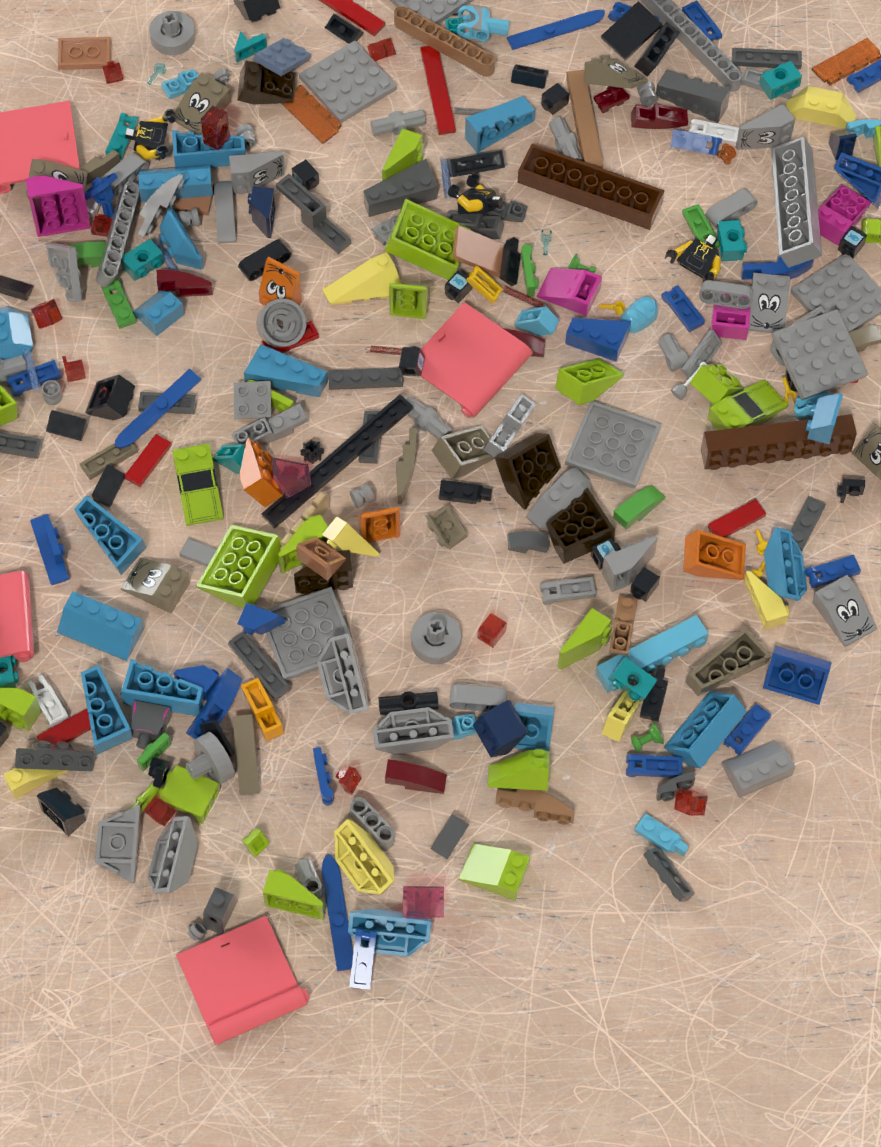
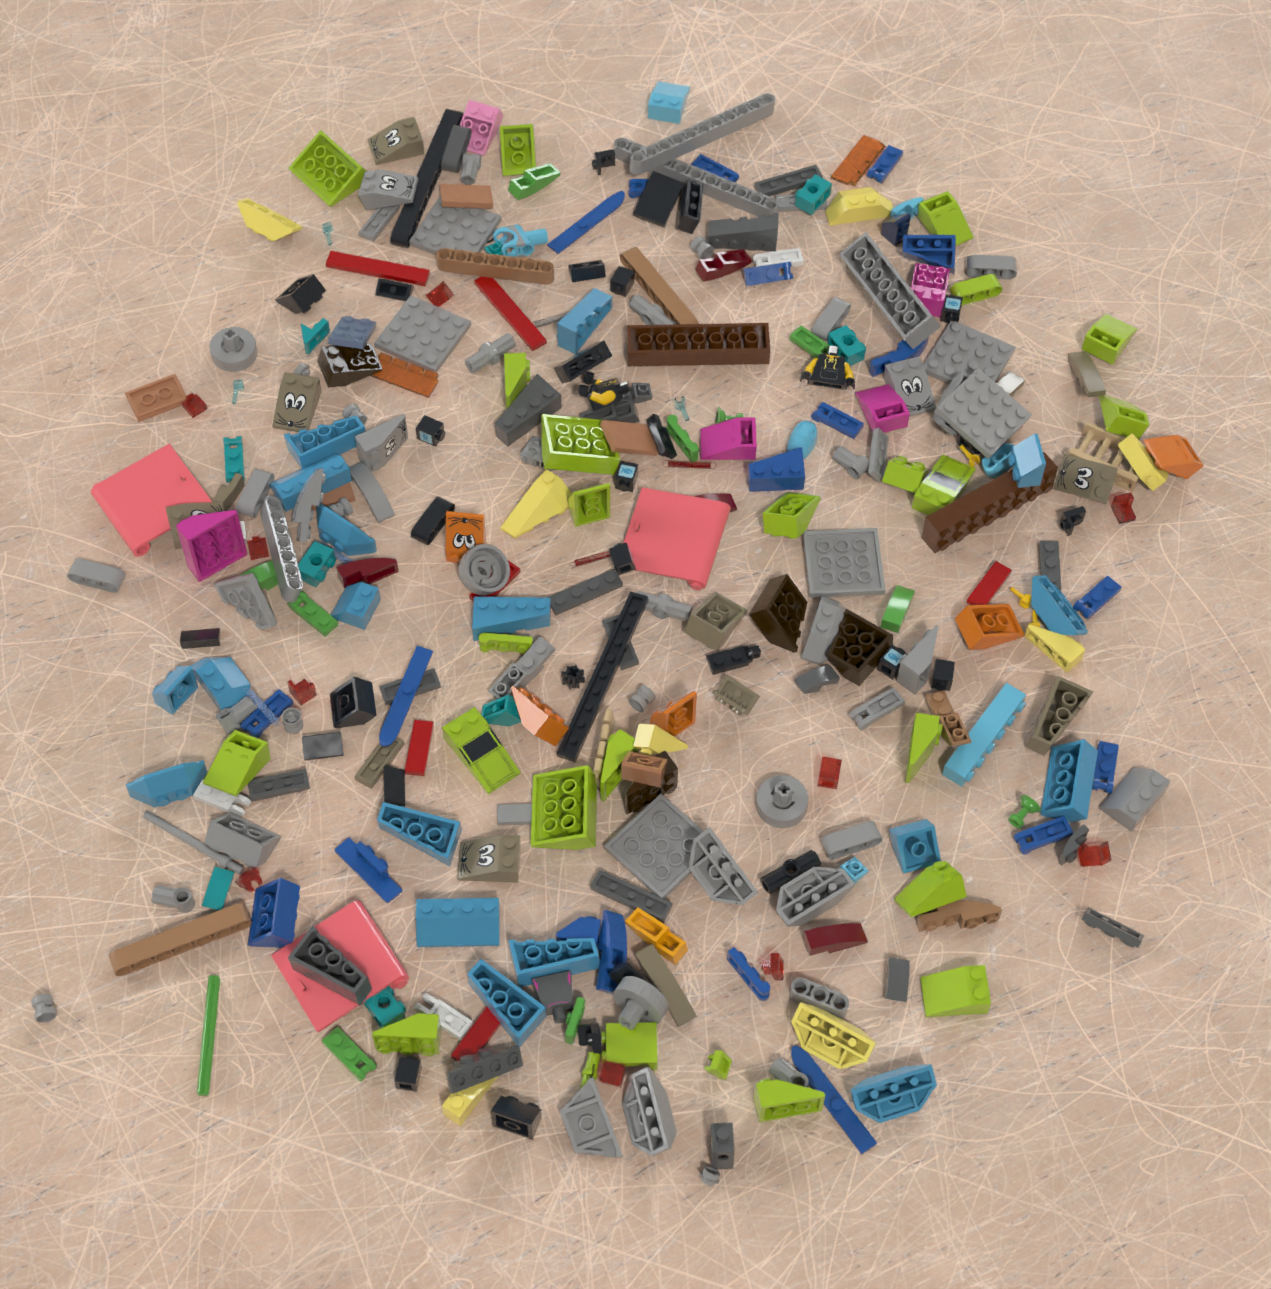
camera: 25 degrees left, 5 degrees down
(46, 313) = (247, 649): clear red panel -> none
(102, 193) = (247, 514): blue piece -> none
(151, 136) = (265, 448): torso -> none
(180, 85) = (266, 393): medium azure slope -> none
(215, 127) = (329, 415): clear red brick -> none
(241, 980) = (778, 1206): coral door -> none
(252, 400) = (492, 651): light grey hinge -> none
(259, 620) = (611, 852): blue slope -> none
(262, 208) = (408, 474): dark blue slope -> none
(290, 476) = (569, 705): clear pink slope -> none
(313, 213) = (458, 461): dark grey bracket -> none
(363, 960) = (884, 1131): plate -> none
(405, 468) = (668, 657): dark tan slope -> none
(423, 901) = (911, 1050): clear pink slope -> none
(444, 175) = (559, 383): light blue piece -> none
(483, 287) = (648, 465): yellow tile -> none
(500, 729) = (891, 858): dark blue slope -> none
(509, 426) = (743, 583): light grey slope -> none
(537, 321) = (715, 479): medium azure slope -> none
(611, 97) = (672, 262): dark red hips -> none
(612, 73) = (663, 239): dark tan slope -> none
(617, 306) = (779, 439): yellow hand -> none
(620, 717) = (989, 799): light yellow slope -> none
(643, 680) = (995, 760): teal brick -> none
(654, 700) = (1008, 771): black hinge -> none
(661, 835) = (1084, 895): medium azure hinge -> none
(680, 390) = (876, 492): light grey hinge -> none
(718, 298) = (865, 389): light grey beam -> none
(729, 150) = (800, 273): clear orange plate -> none
(766, 130) = (827, 240): light grey slope -> none
(797, 675) = (1121, 700): blue slope -> none
(844, 610) = (1128, 627): light grey slope -> none

